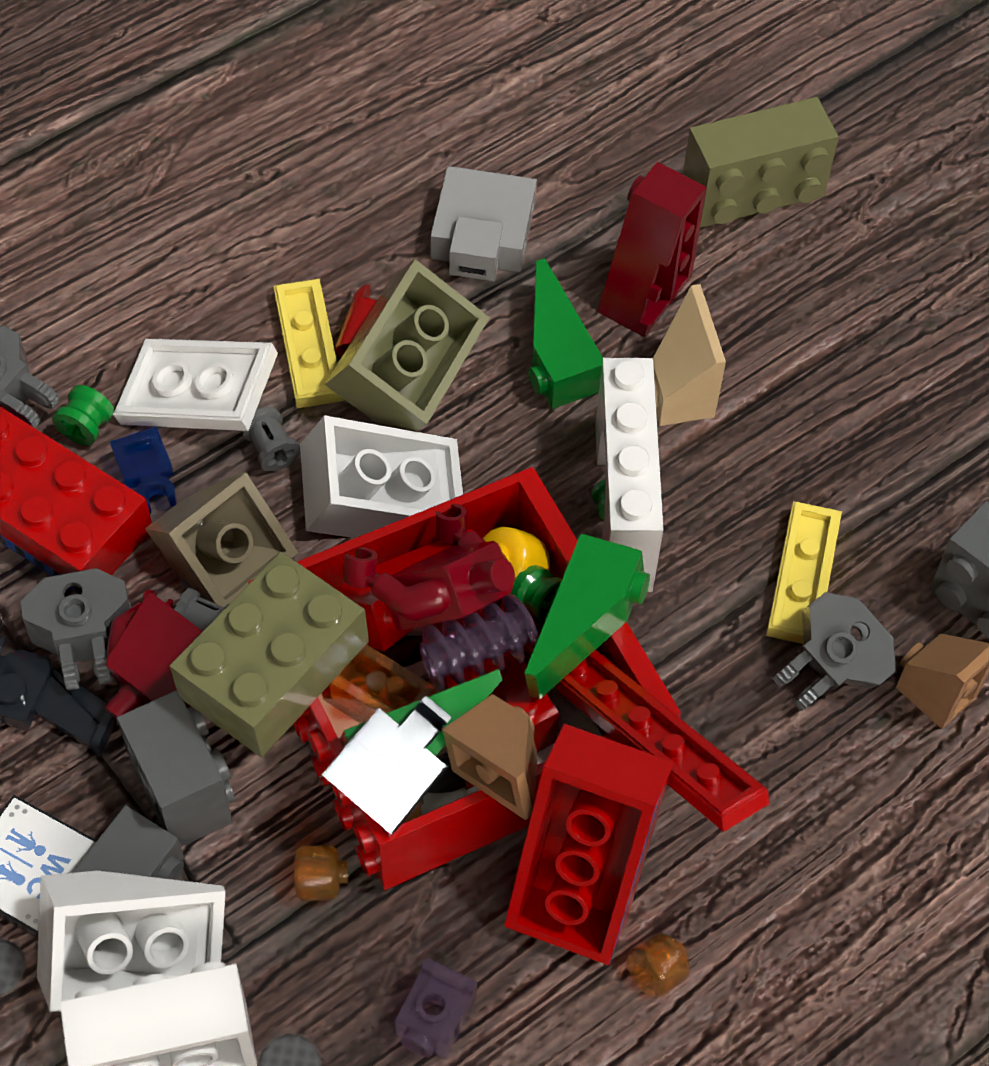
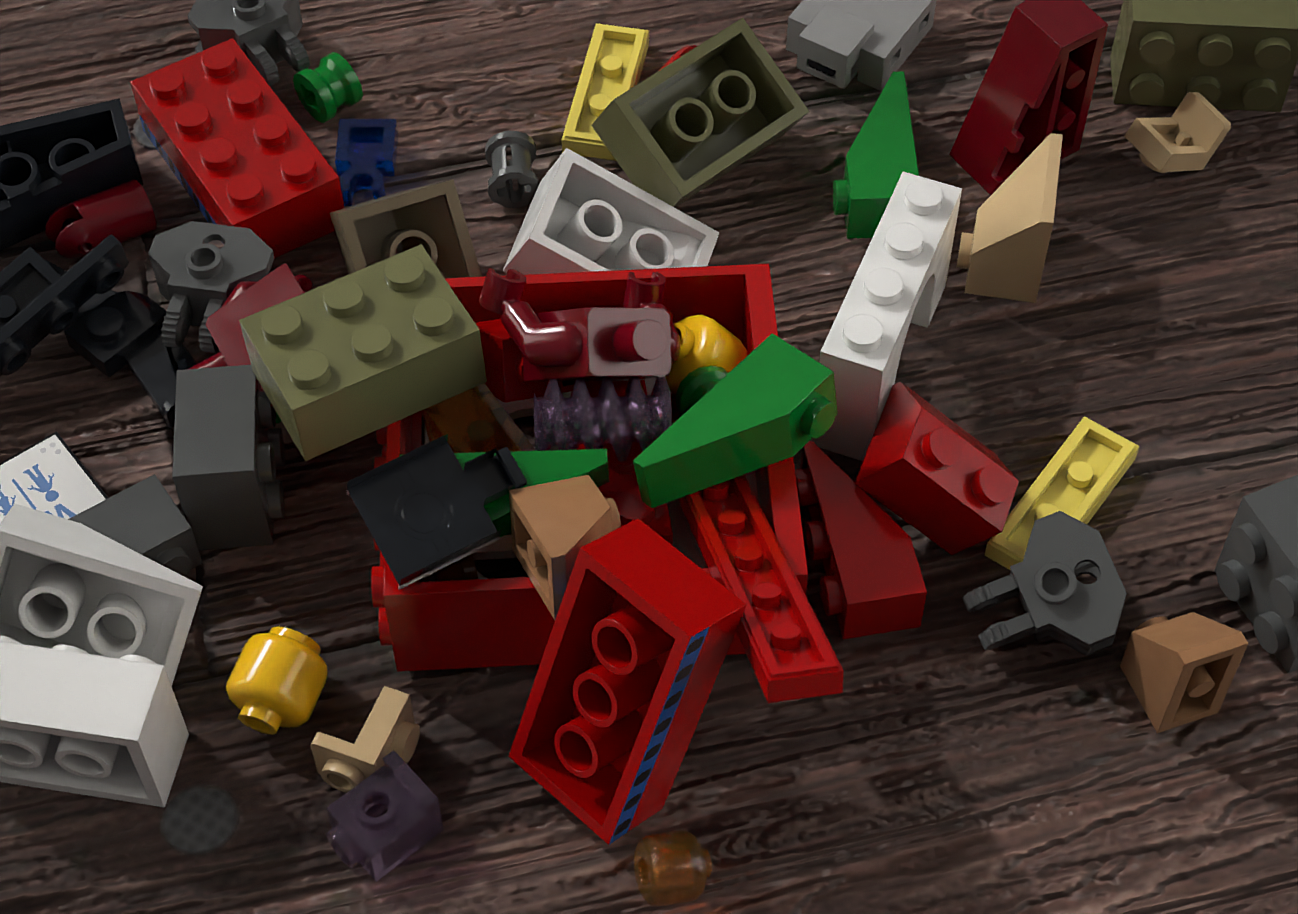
camera: 25 degrees right, 5 degrees down
(196, 384) = (460, 90): white tile -> none
(303, 934) = (277, 680): none -> yellow head
(318, 873) = (332, 621): clear orange piece -> none
(394, 980) = (386, 729): none -> tan bracket
(693, 670) = (865, 555): none -> red slope
(716, 588) = (935, 474): none -> red slope
(768, 245) = (1182, 140): none -> tan bracket

